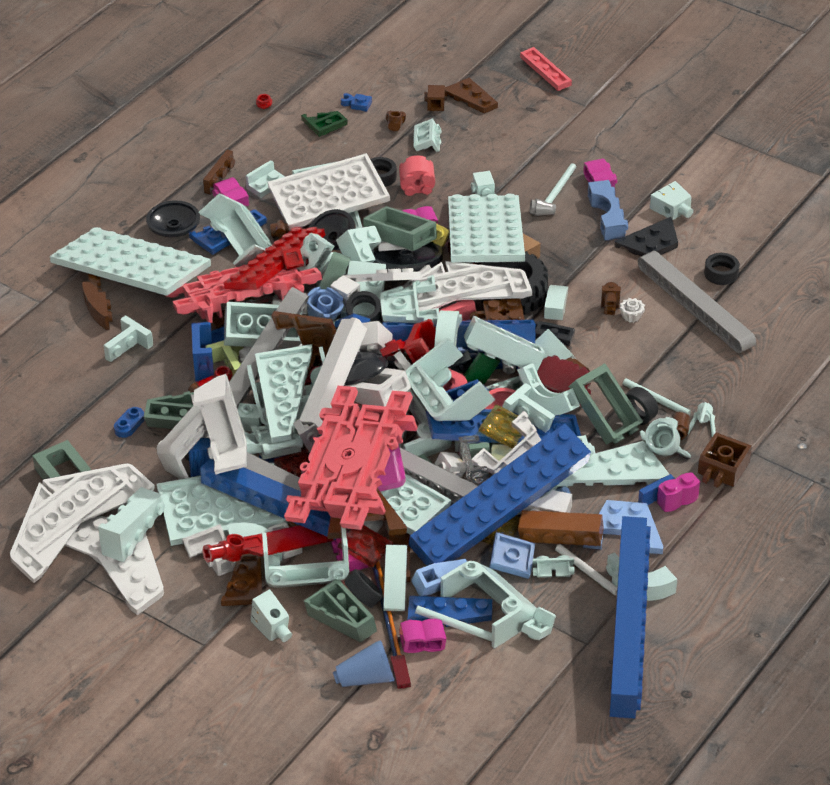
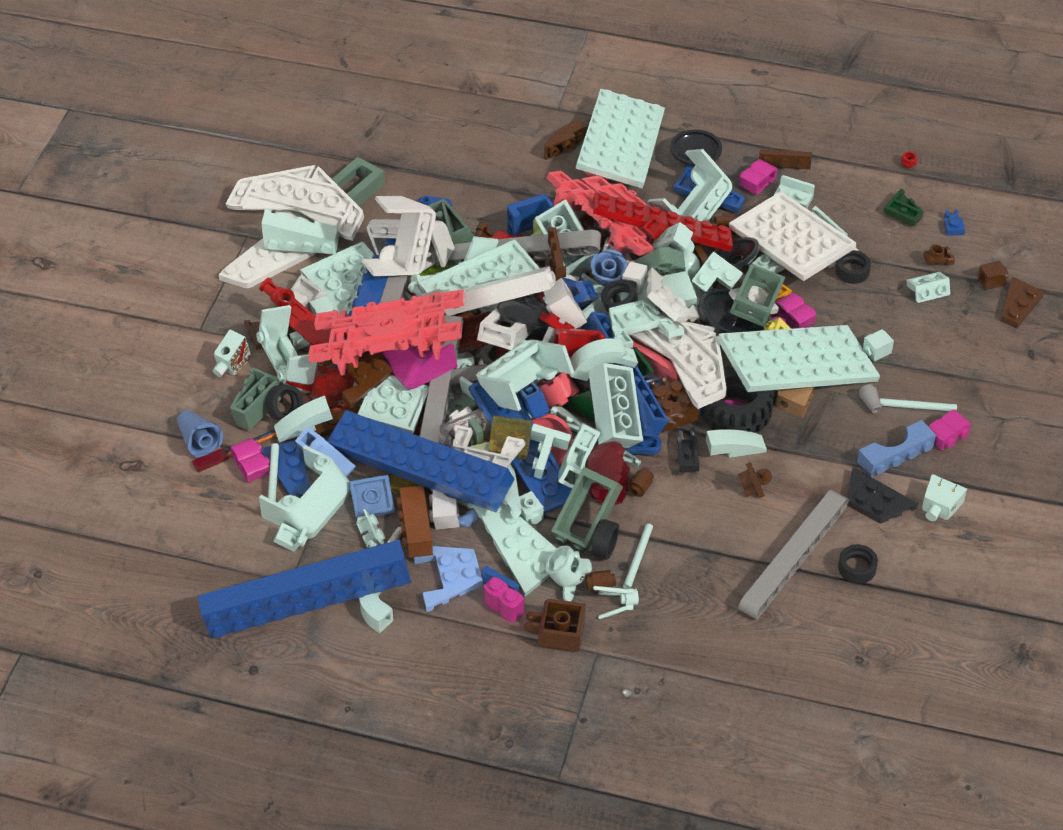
camera: 70 degrees right, 5 degrees up
(131, 334) = (530, 170): light aqua bracket -> none
(417, 175) = (854, 291): coral brick -> none
(553, 346) = (659, 457): light aqua panel -> none
(632, 309) = (752, 504): white piece -> none

